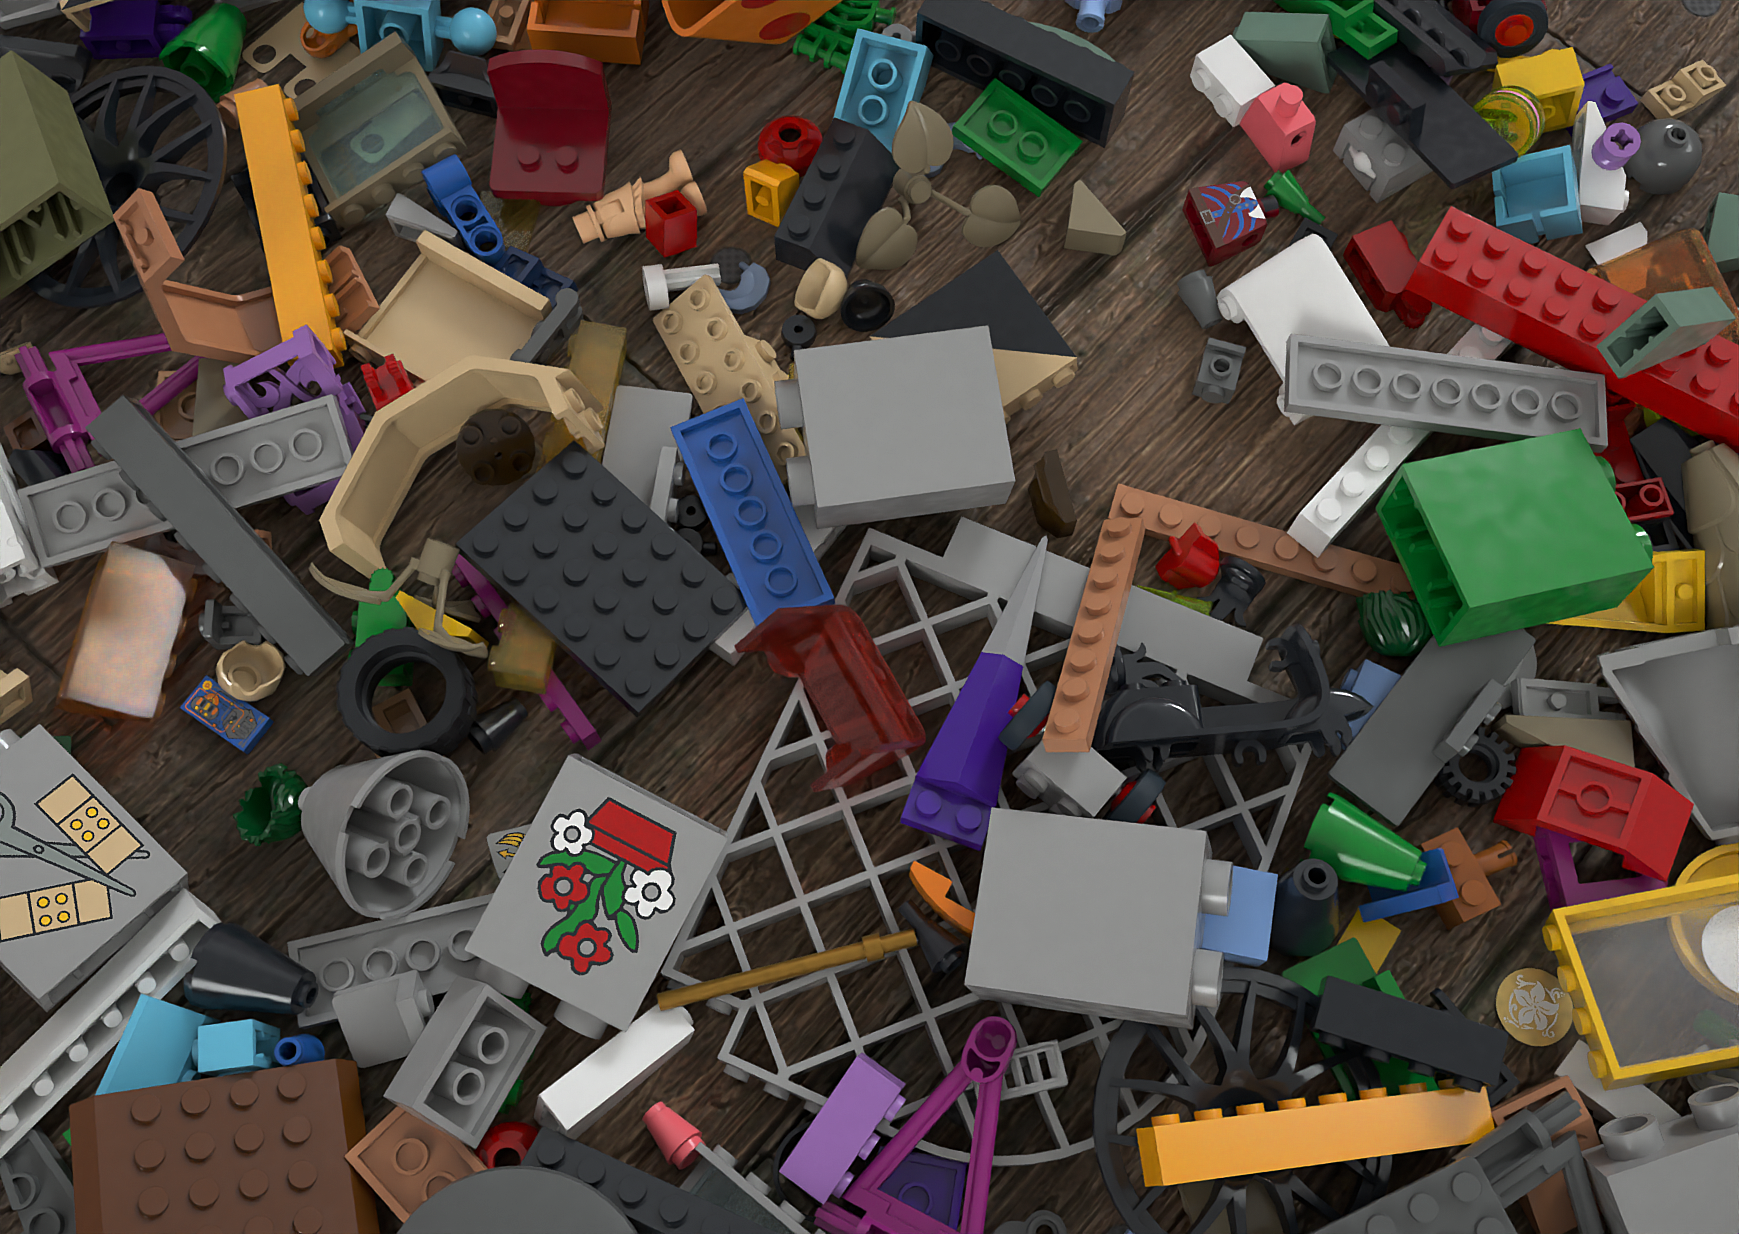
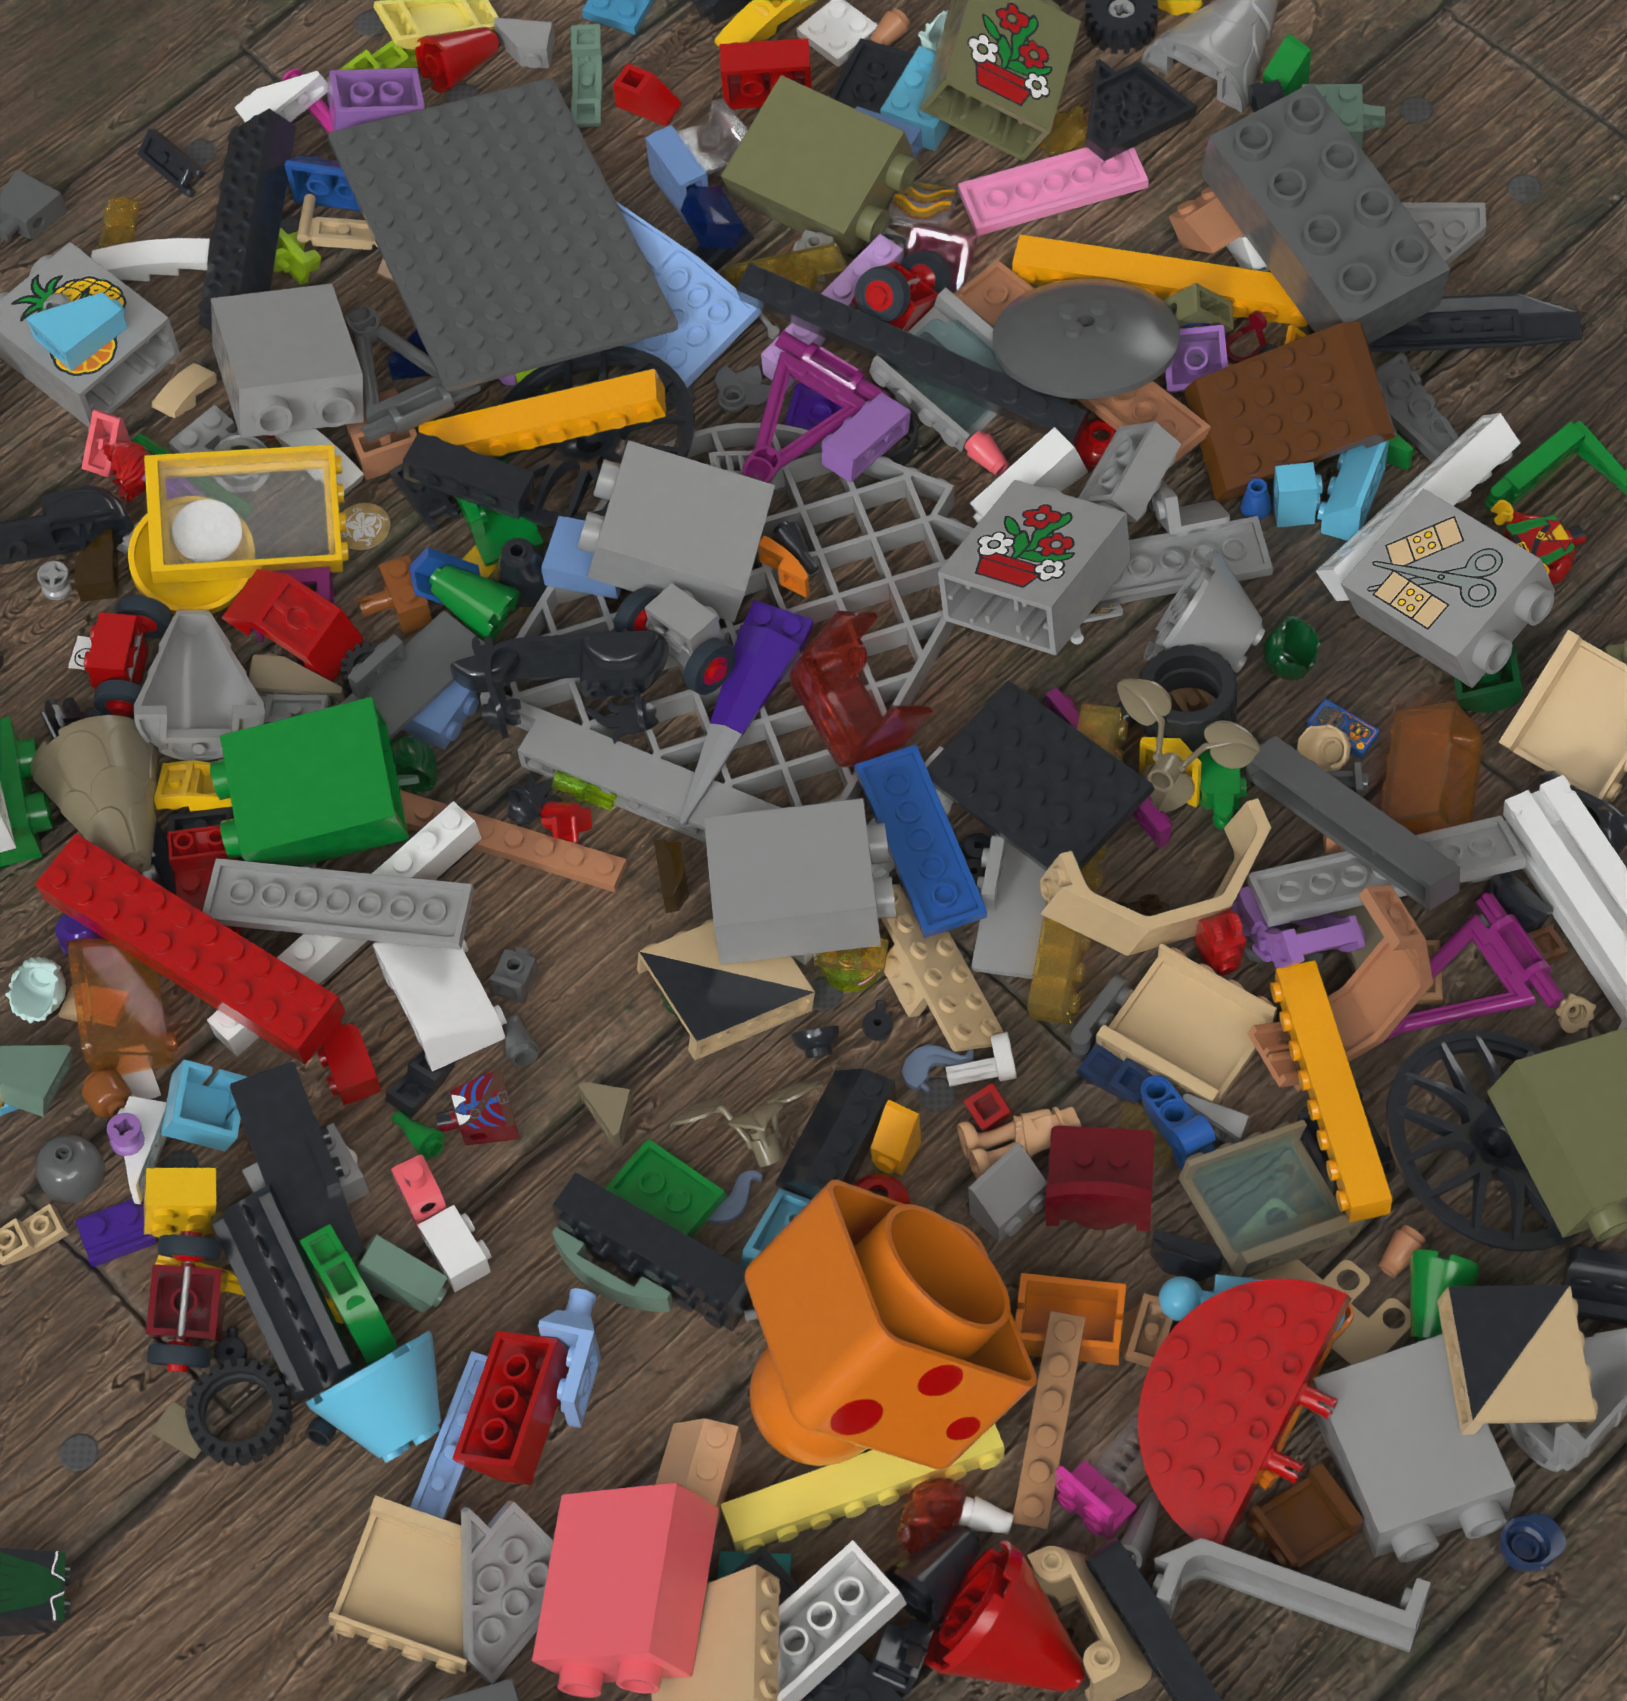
camera: 170 degrees left, 10 degrees down
(247, 975) = (1289, 535): black cone -> none
(652, 136) = (1007, 1193): none -> light grey slope
(821, 289) = (854, 1047): tan hair -> none
(870, 948) = (840, 542): pearl gold bar -> none
(1094, 637) = (650, 728): nougat plate -> none
(1514, 115) = (221, 1150): clear neon green head -> none
(1645, 223) = (105, 1092): none -> dark orange head
(1664, 329) = (155, 904): sand green slope -> none

